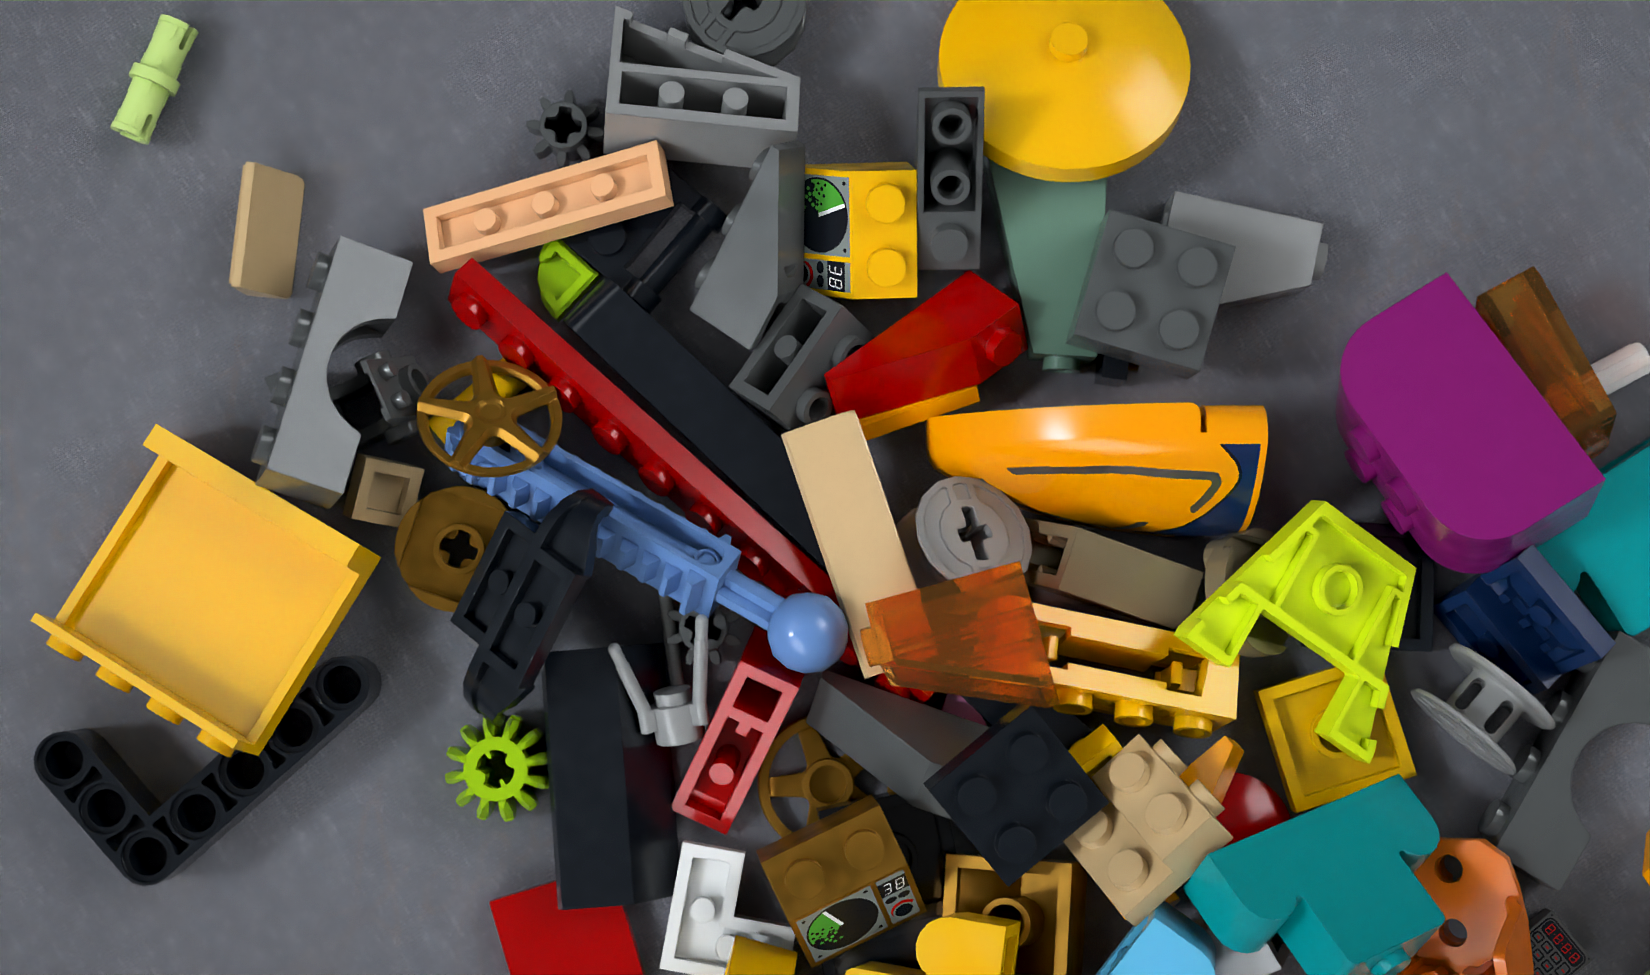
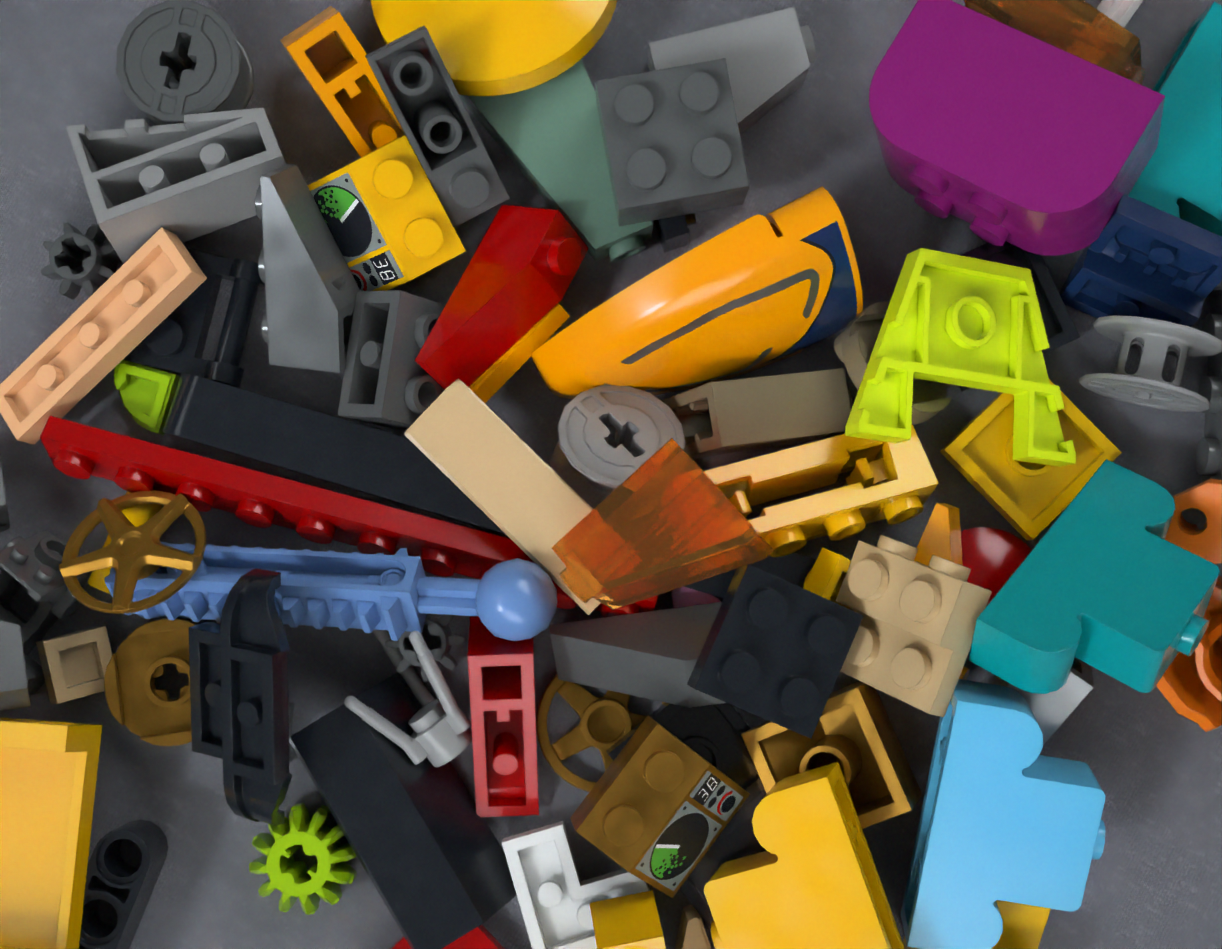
camera: 20 degrees left, 0 degrees up
(883, 85) = (343, 80): none -> light orange slope

